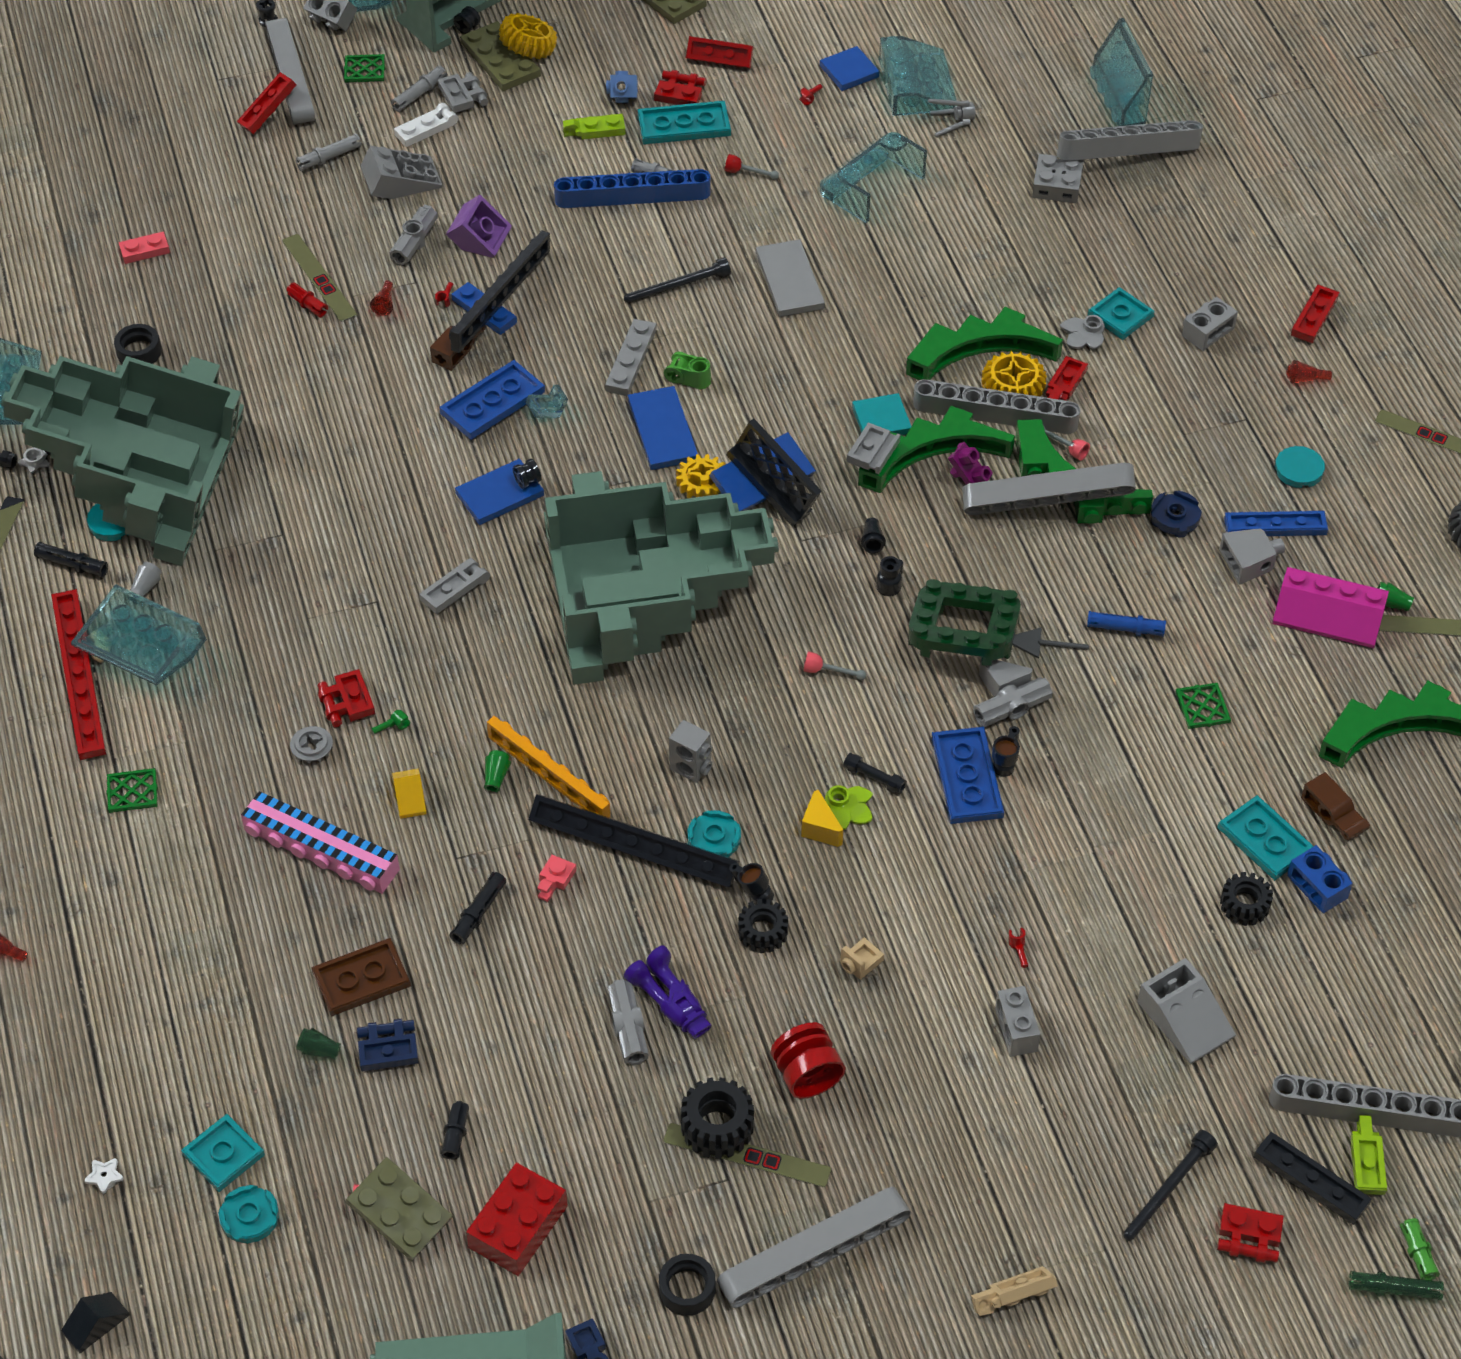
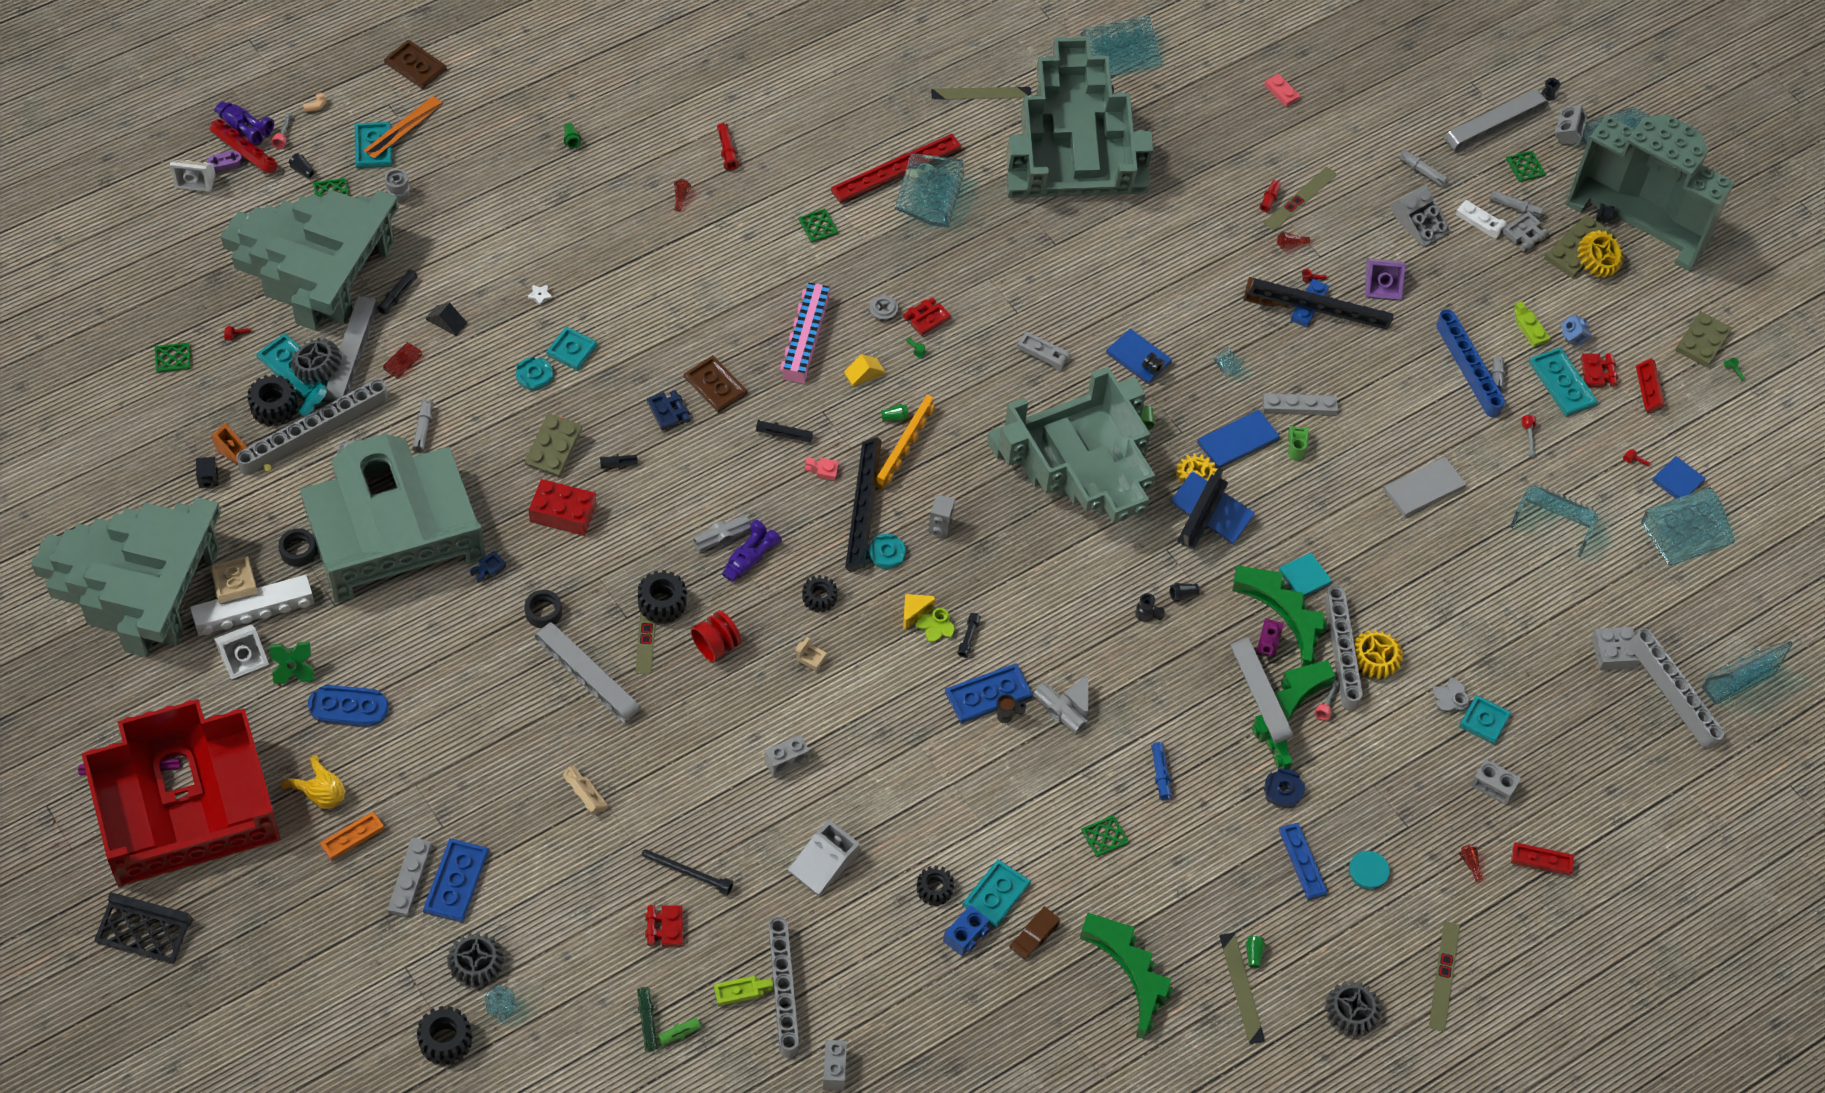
camera: 70 degrees right, 5 degrees up
(95, 566) = (986, 140): black pin -> none
(135, 333) = (1186, 123): black tyre -> none
(146, 578) = (983, 179): light grey cone -> none
(266, 103) = (1449, 114): red plate -> none
(317, 1044) = (657, 373): clear green cone -> none
(413, 235) = (1360, 240): light grey piece -> none
(491, 399) = (1221, 329): blue plate -> none
(719, 268) = (1413, 439): black piece -> none
(753, 881) = (846, 577): black piece -> none
(815, 663) = (1052, 577): hinge -> none
(873, 448) = (1255, 567): light grey plate -> none
(962, 111) = (1662, 566): light grey plant -> none
(975, 336) = (1411, 619): green arch -> none
(990, 645) = (1114, 682): dark green plate -> none
(1018, 944) = (854, 750): red hand -> none
(1031, 641) = (1125, 713): dark grey piece -> none
(1066, 379) = (1390, 690): red hinge -> none
(1250, 553) = (1260, 844): light grey torso -> none
(1312, 1178) = (716, 957): black plate -> none
(1330, 607) = (1225, 907): dark pink slope -> none

